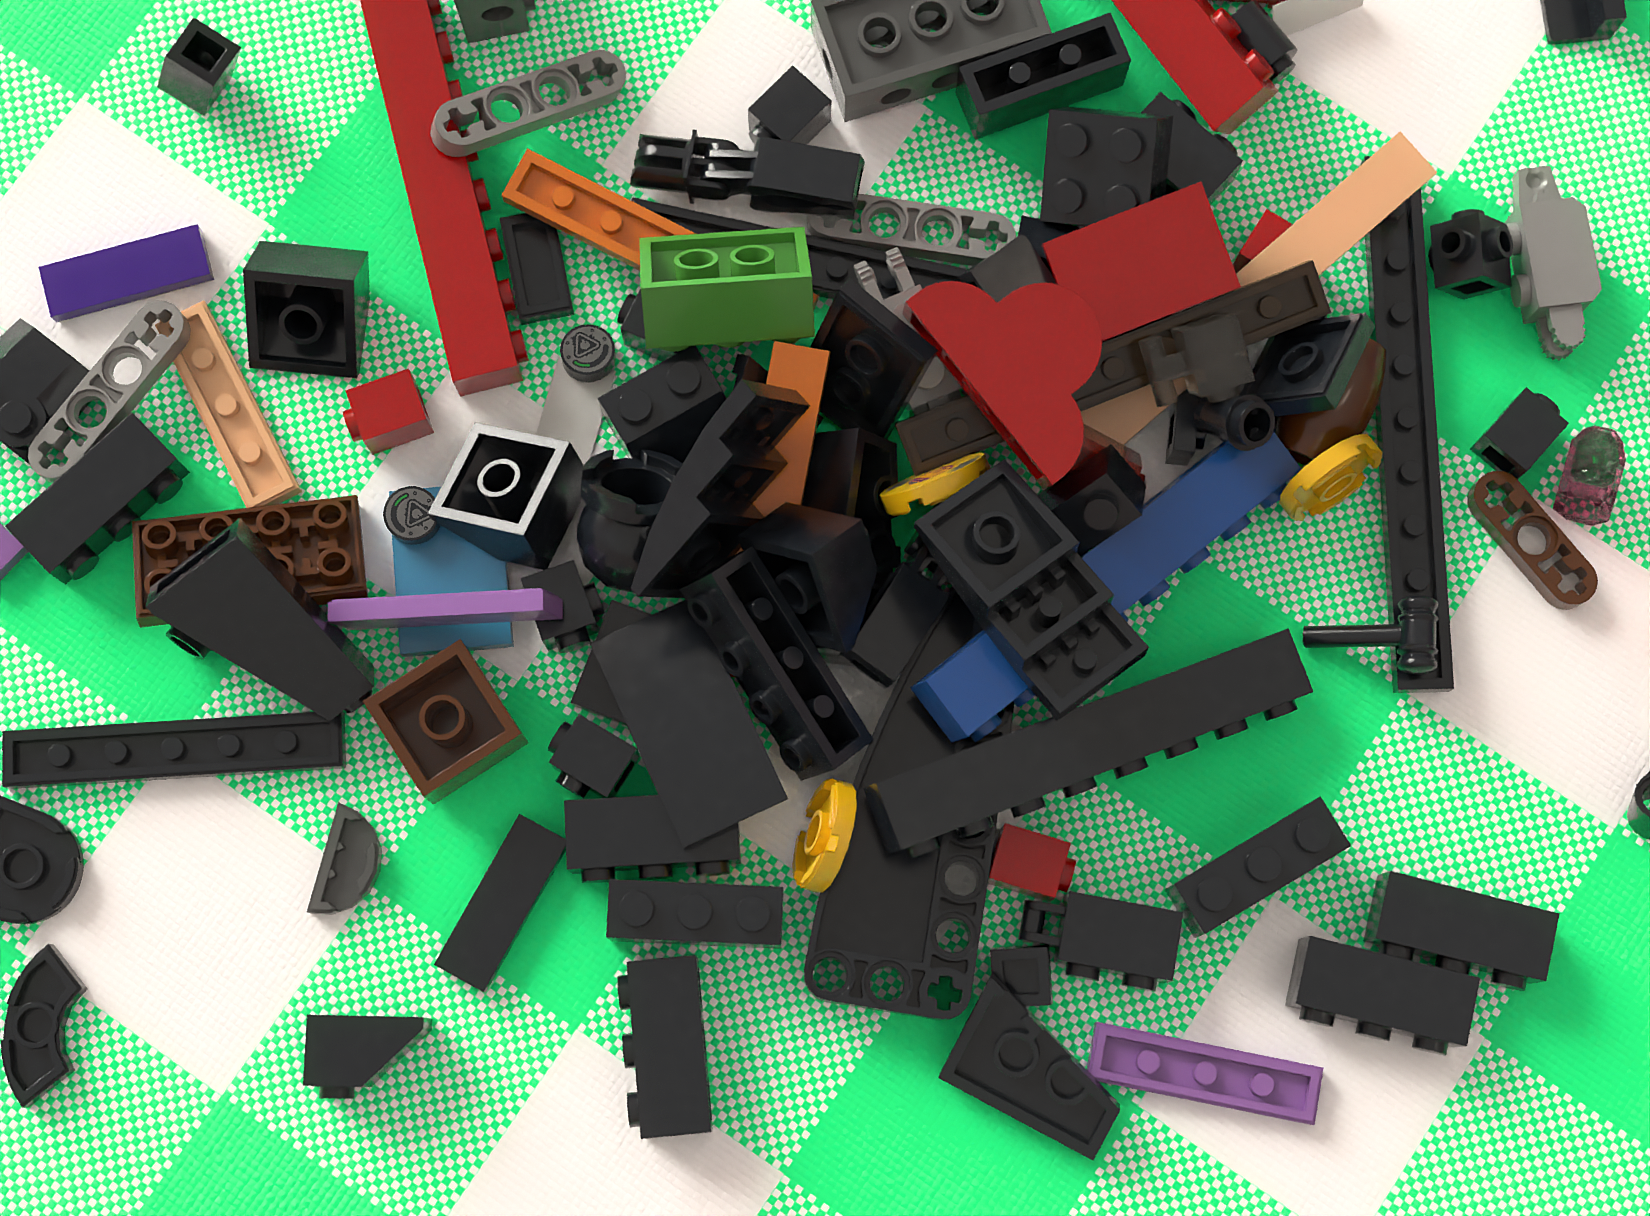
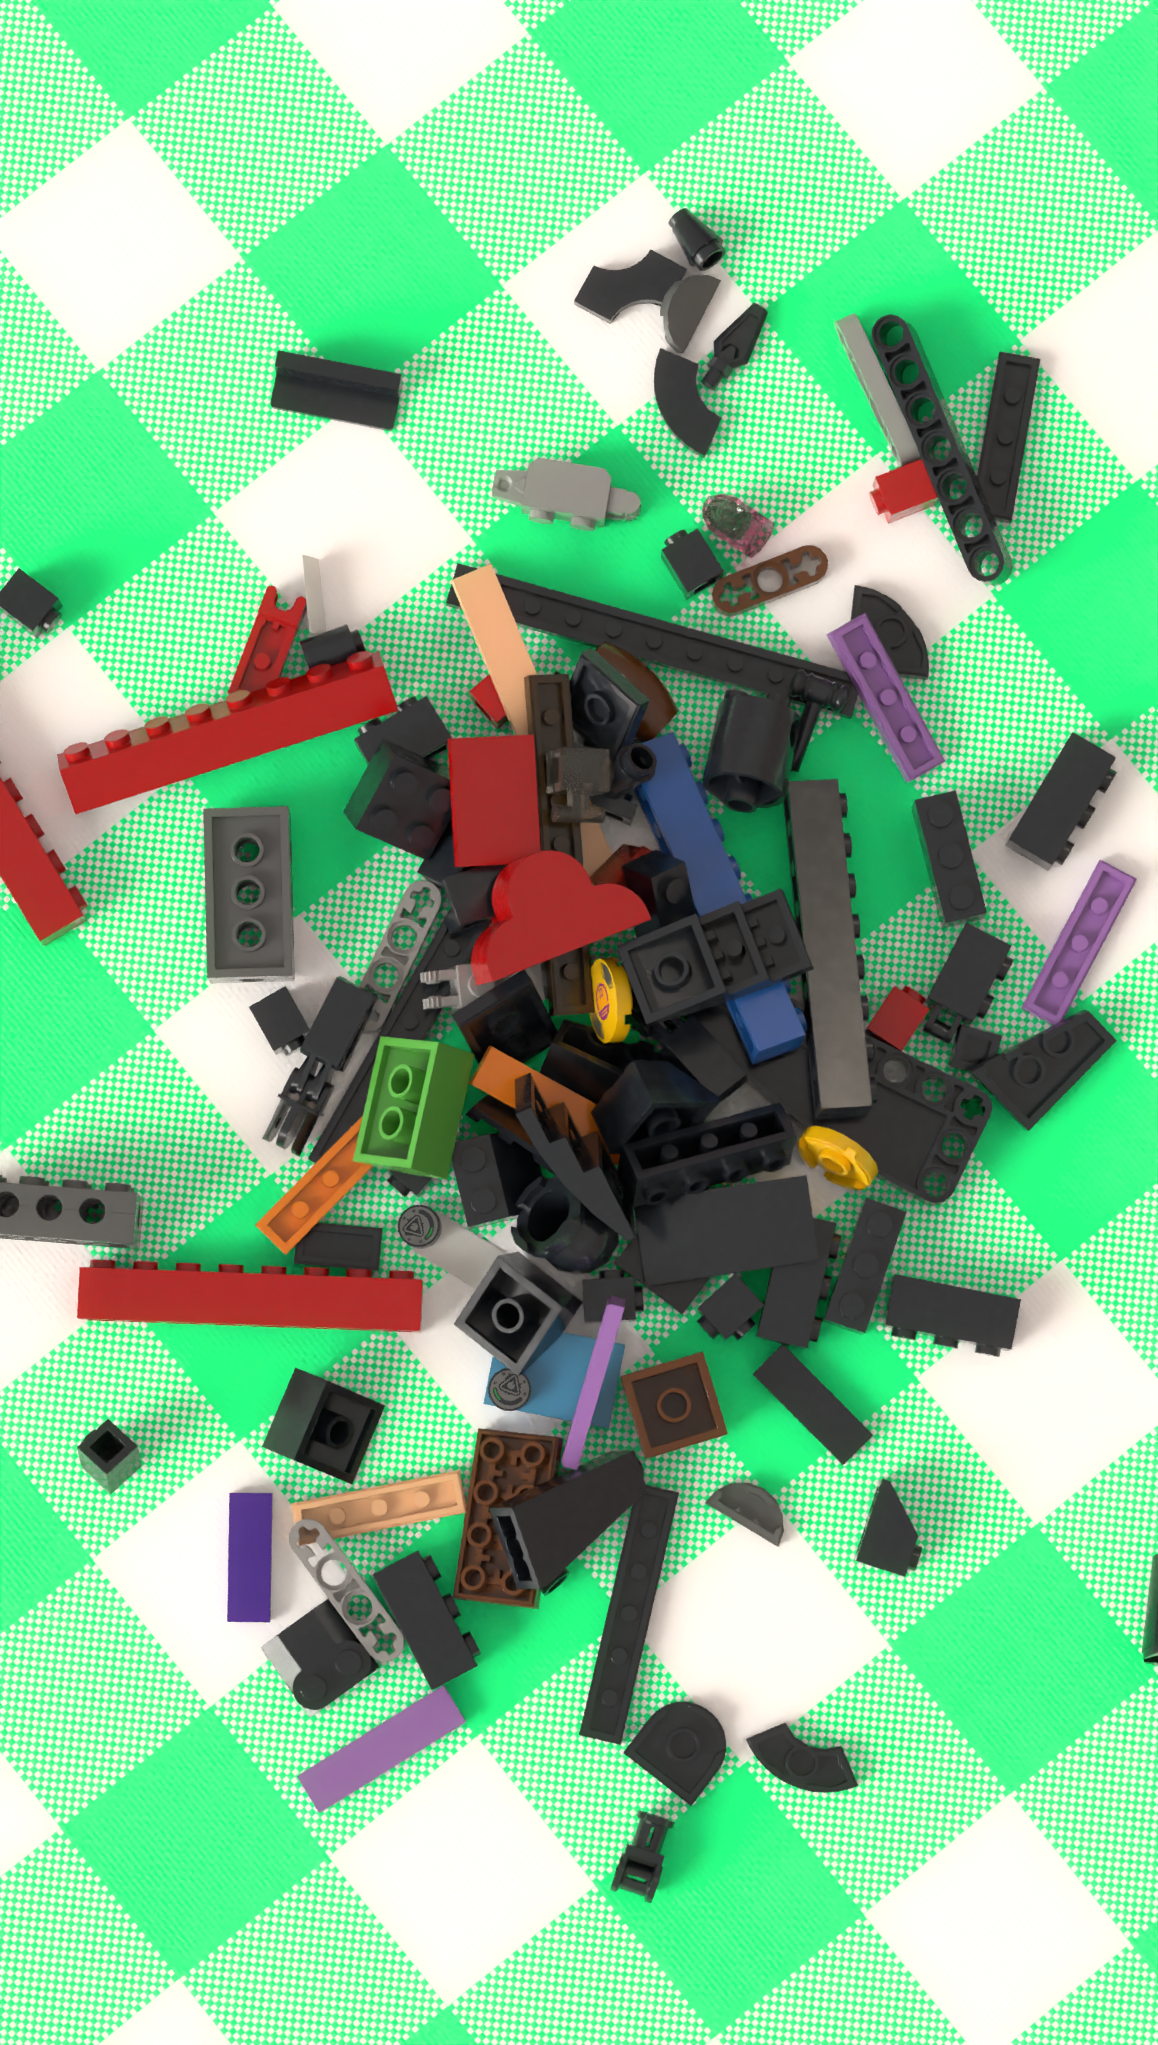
camera: 75 degrees left, 5 degrees up
(387, 412) = (423, 1388): red brick -> none
(525, 95) = (215, 1213): light grey beam -> none
(1042, 75) = (312, 822): brick -> none
(1312, 571) = (751, 751): none -> black cylinder
(1330, 477) = (686, 713): yellow tile -> none
(1437, 724) = (885, 697): none -> medium lavender tile
(1461, 929) = (1034, 732): black brick -> none
(1470, 254) = (546, 552): black brick -> none
(1524, 711) = (895, 630): none -> black tile

